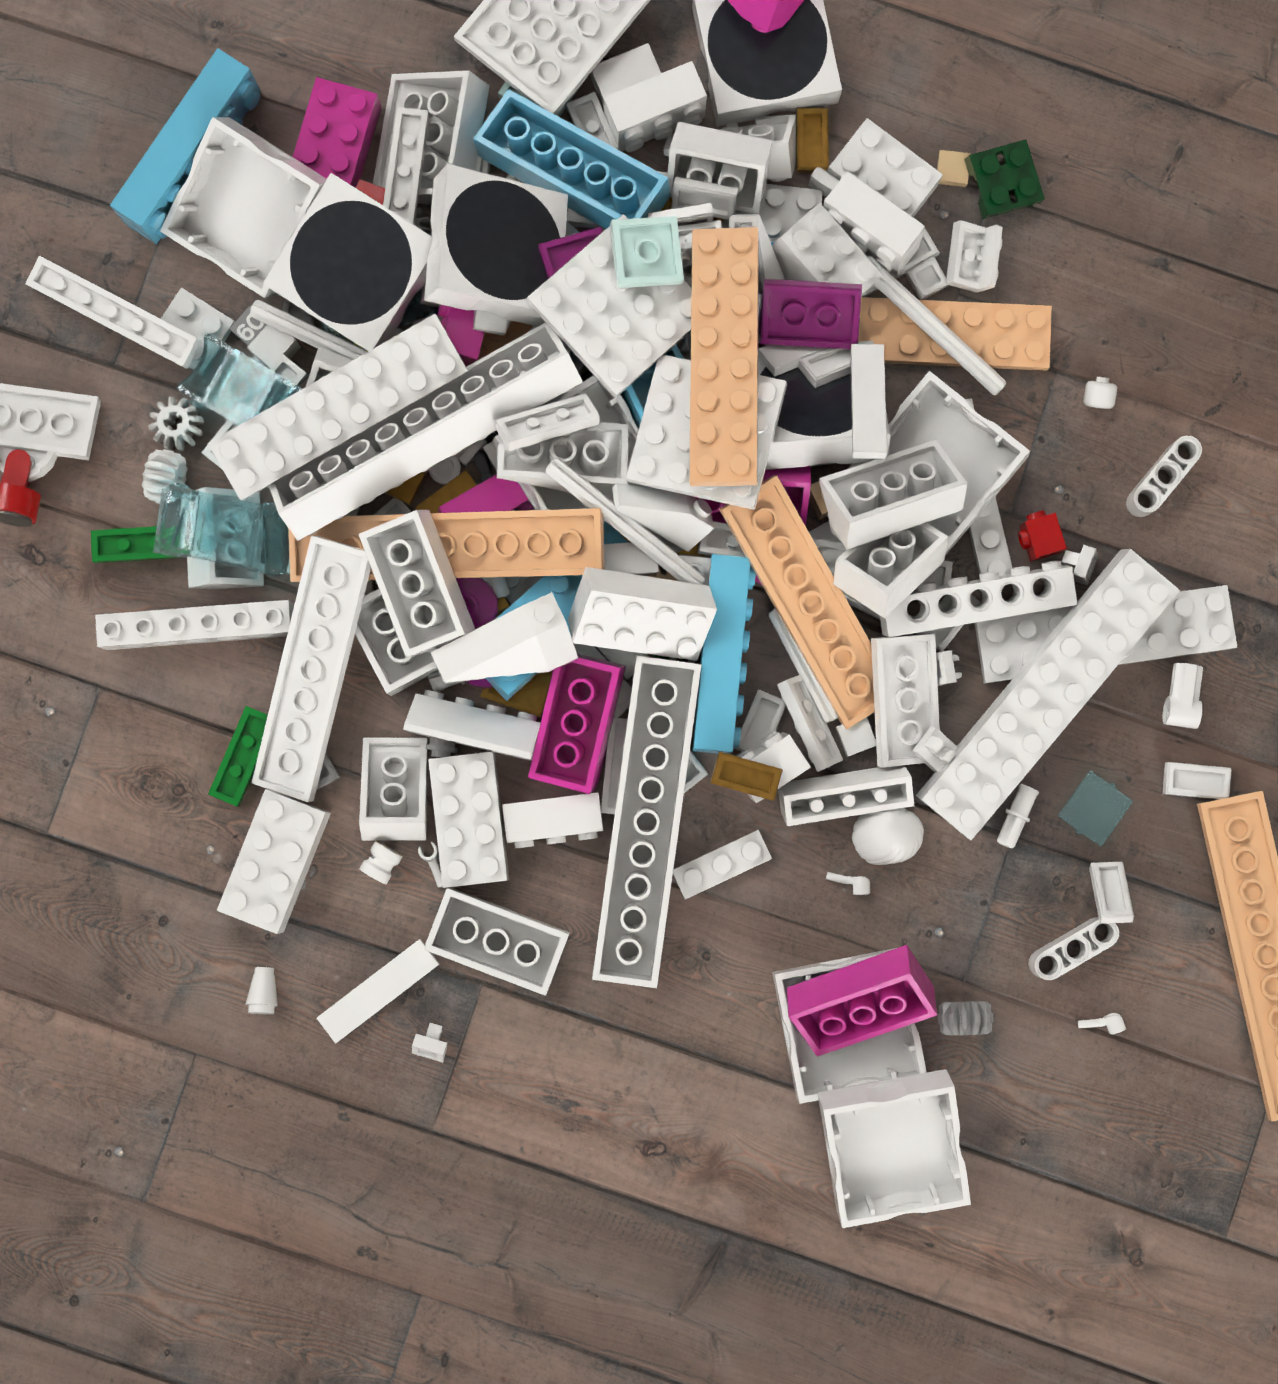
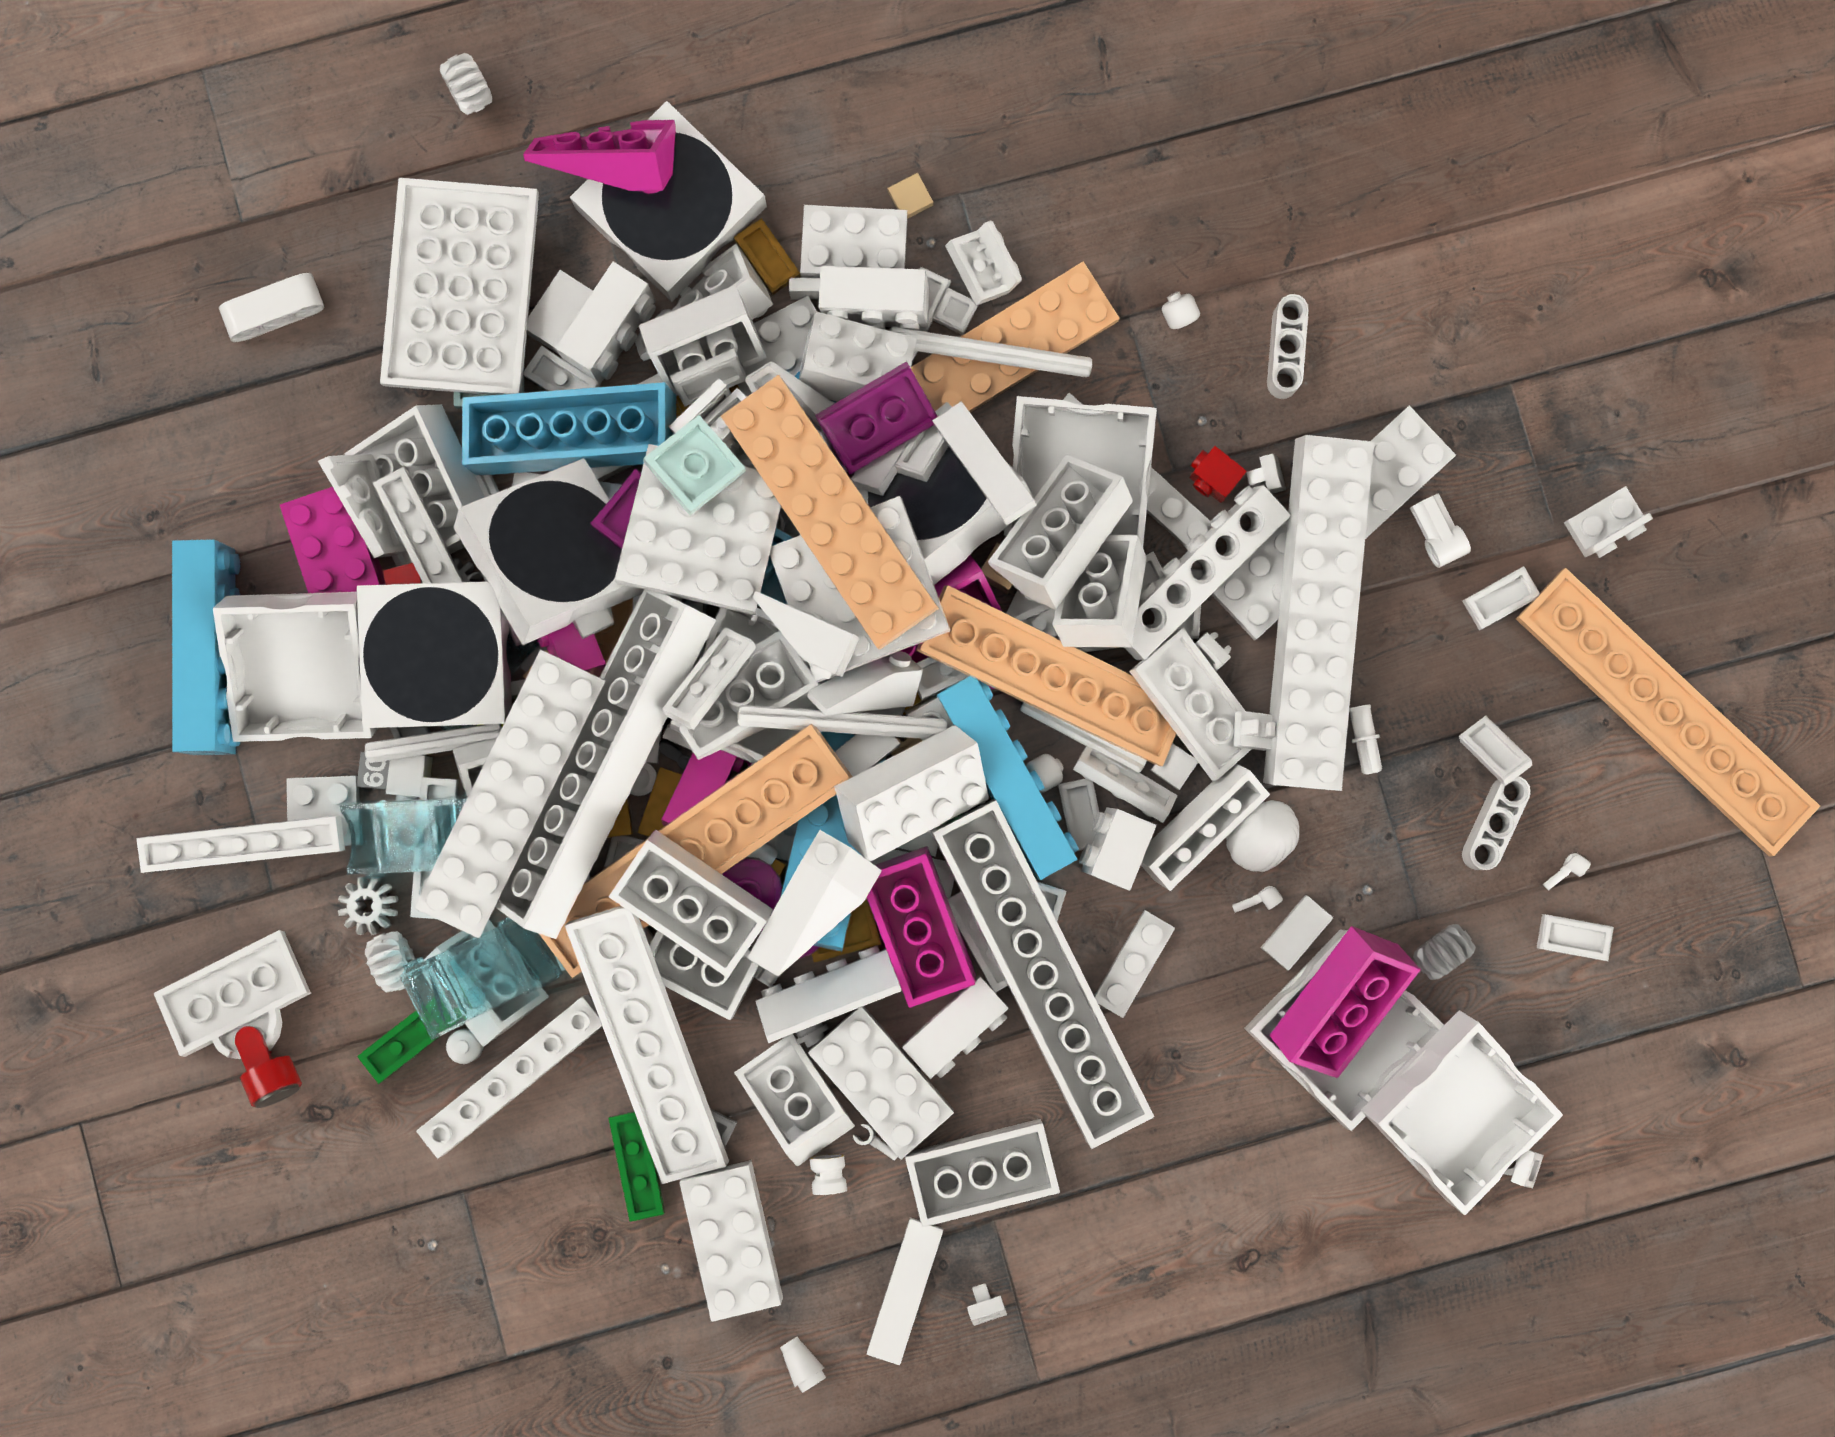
camera: 35 degrees left, 0 degrees up
(174, 578) = (463, 1047): none -> white piece
(381, 97) = (353, 482): none -> white wing
(645, 443) = (813, 639): none -> white slope
(746, 776) = (1105, 873): pearl gold tile -> none
(757, 673) = (1048, 770): none -> white piece
(862, 926) = (1297, 932): none -> white tile
(914, 1227) = (1525, 1169): none -> white tile
(999, 180) = (959, 182): dark green brick -> none
(1074, 1078) = (1575, 937): none -> white tile
(1095, 808) = (1429, 684): clear light blue piece -> none

